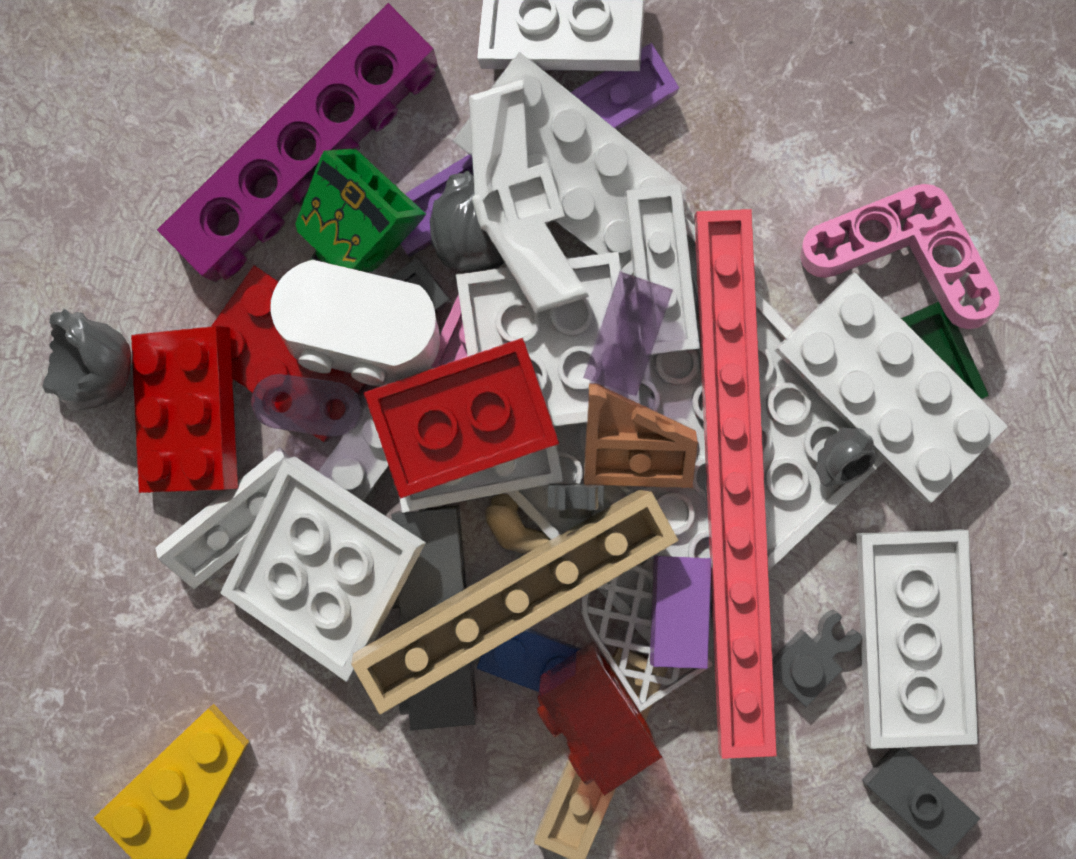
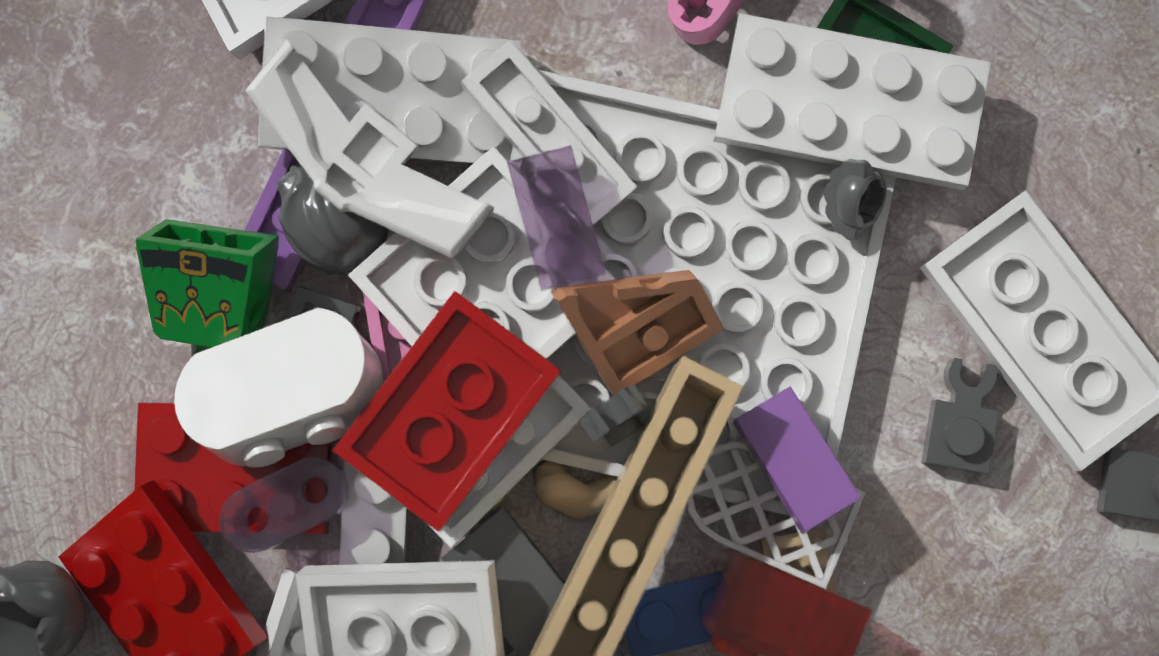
camera: 35 degrees left, 5 degrees down
(306, 115) = (124, 96): magenta brick -> none
(735, 484) = (766, 300): coral plate -> none

